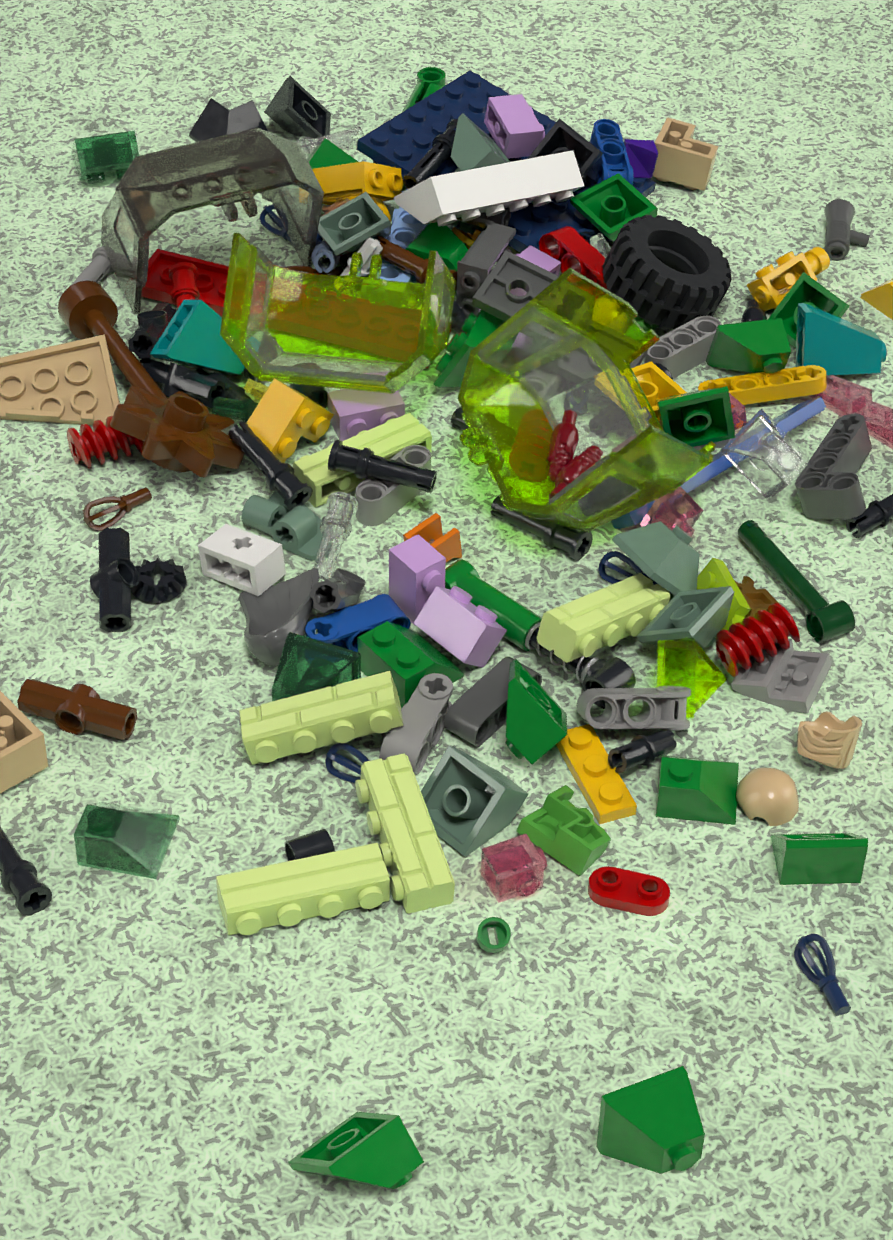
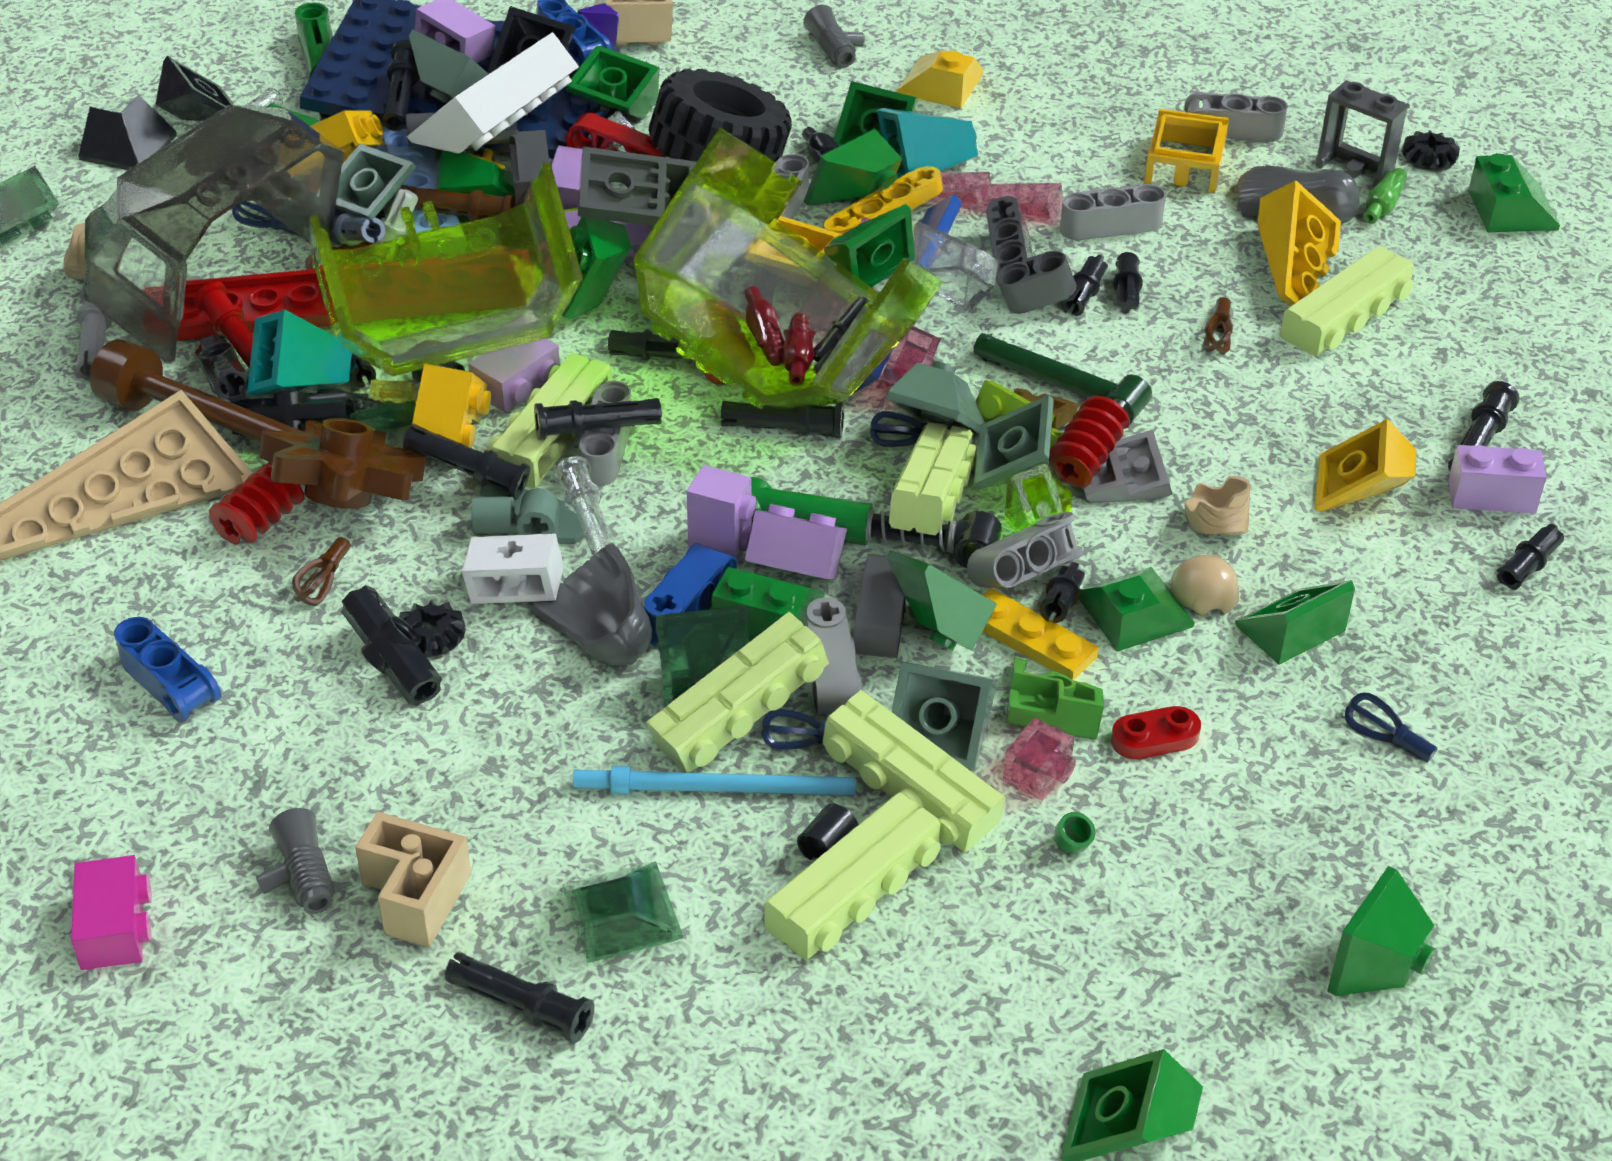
camera: 30 degrees left, 0 degrees up
(77, 709) = (460, 797): reddish brown piece -> none
(203, 747) = (622, 780): none -> medium azure bar
(337, 592) = (649, 559): dark grey piece -> none
(431, 531) = (684, 471): orange window -> none
(775, 282) = (825, 95): yellow brick -> none

